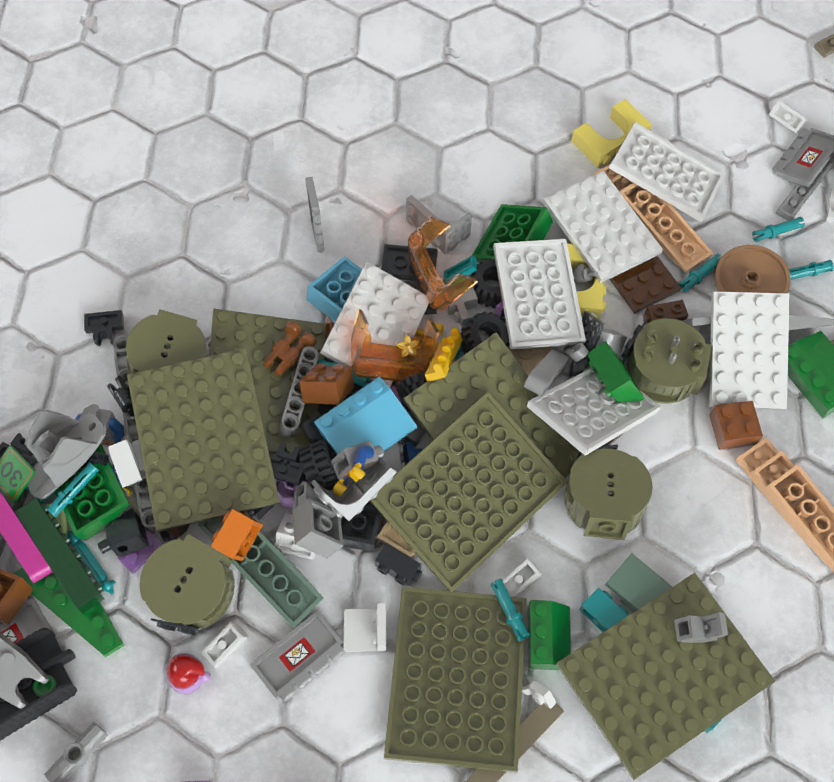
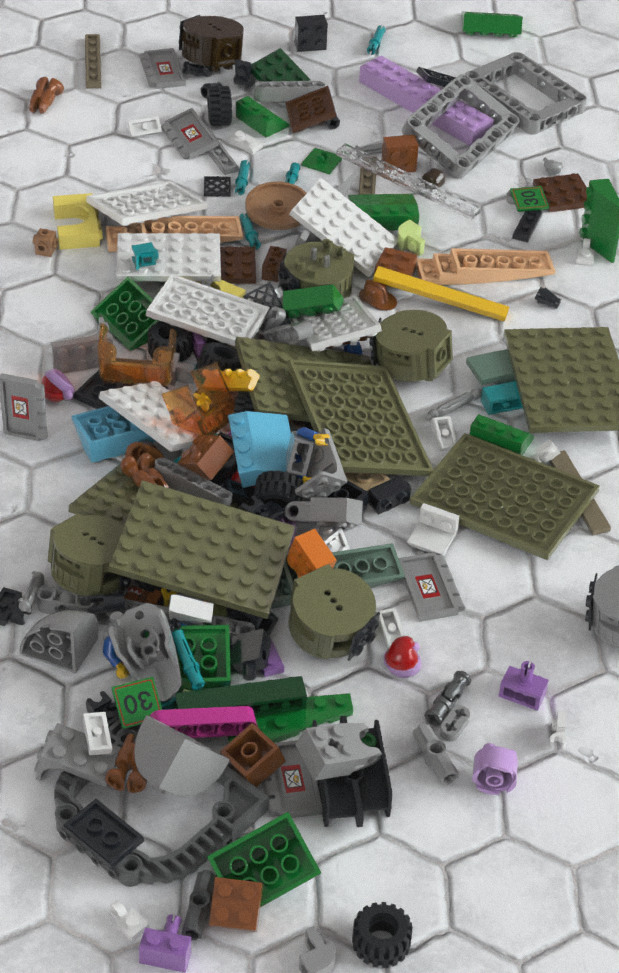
camera: 65 degrees left, 20 degrees down
(75, 382) = (61, 639): none -> light grey brick
(108, 333) = (30, 592): none -> light grey wheel
(128, 751) = (451, 721): none -> light grey beam
(154, 738) = (447, 698): none -> dark grey piece
(380, 228) = (57, 386): none -> piece
(464, 267) = (145, 348): teal tile -> none
(513, 617) = (470, 441): teal pin -> none
(563, 125) = (45, 242): none -> medium nougat brick
(568, 569) = (454, 404): none -> light grey wheel
(574, 204) = (144, 255): none -> teal window
(686, 429) = (377, 296): none -> dark orange piece
(701, 629) = (554, 334): light grey brick -> none
(725, 487) = (441, 293): none -> yellow tile
(763, 210) = (215, 179): none -> black window
(766, 23) = (45, 94): none -> dark orange piece
(797, 413) = (410, 238): none -> yellowish green brick
(799, 594) = (546, 297): none -> black cone

